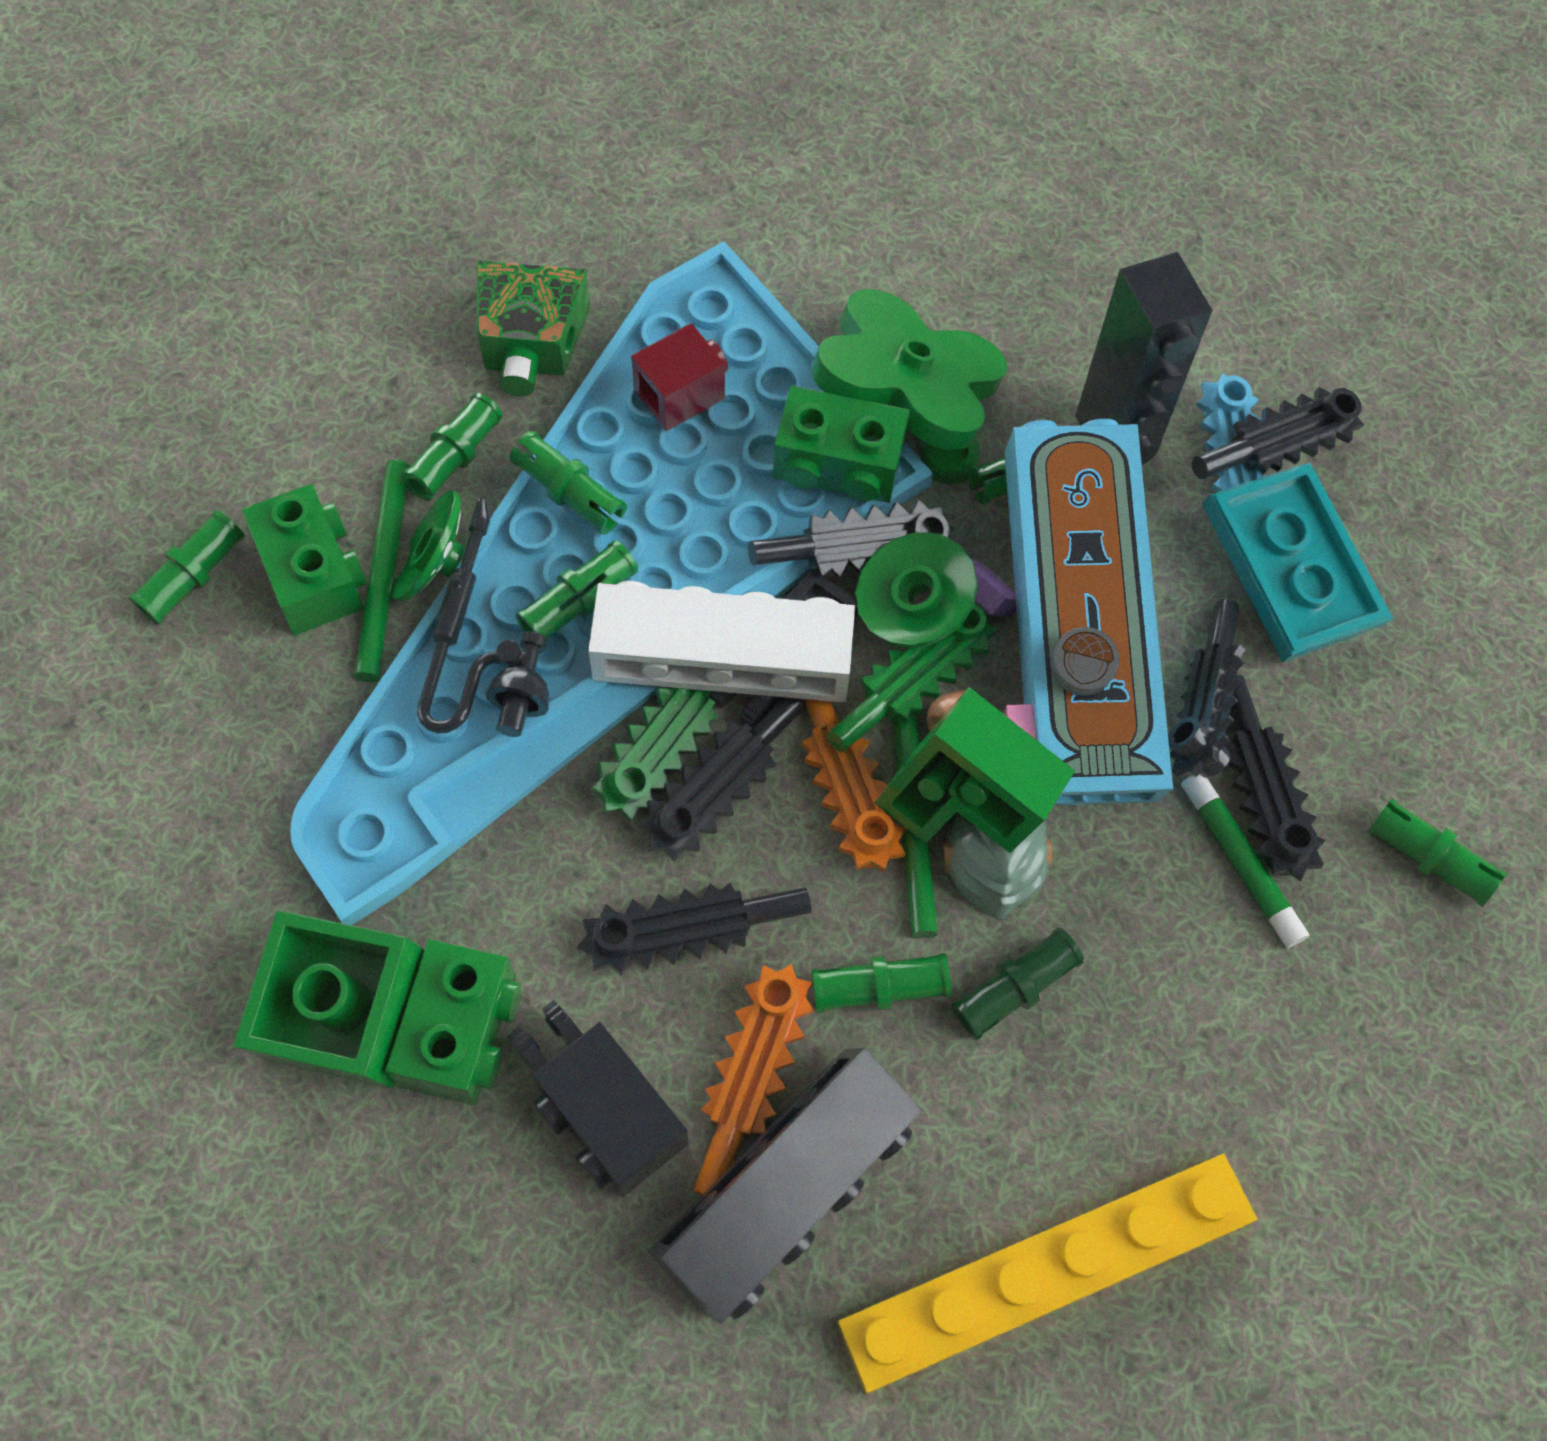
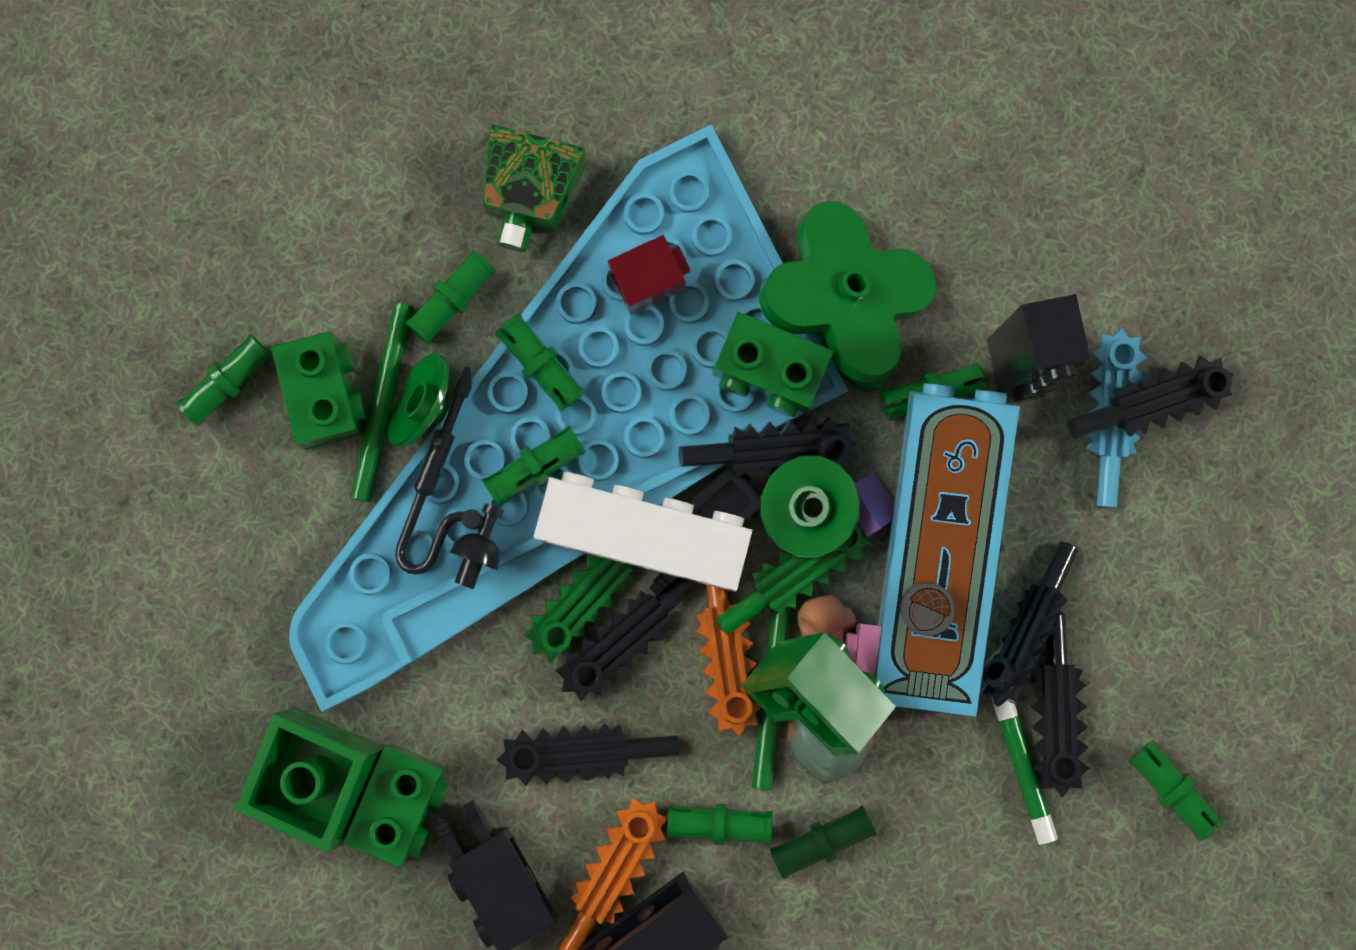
camera: 15 degrees right, 20 degrees up
(1296, 561) = (1135, 519): teal tile -> none

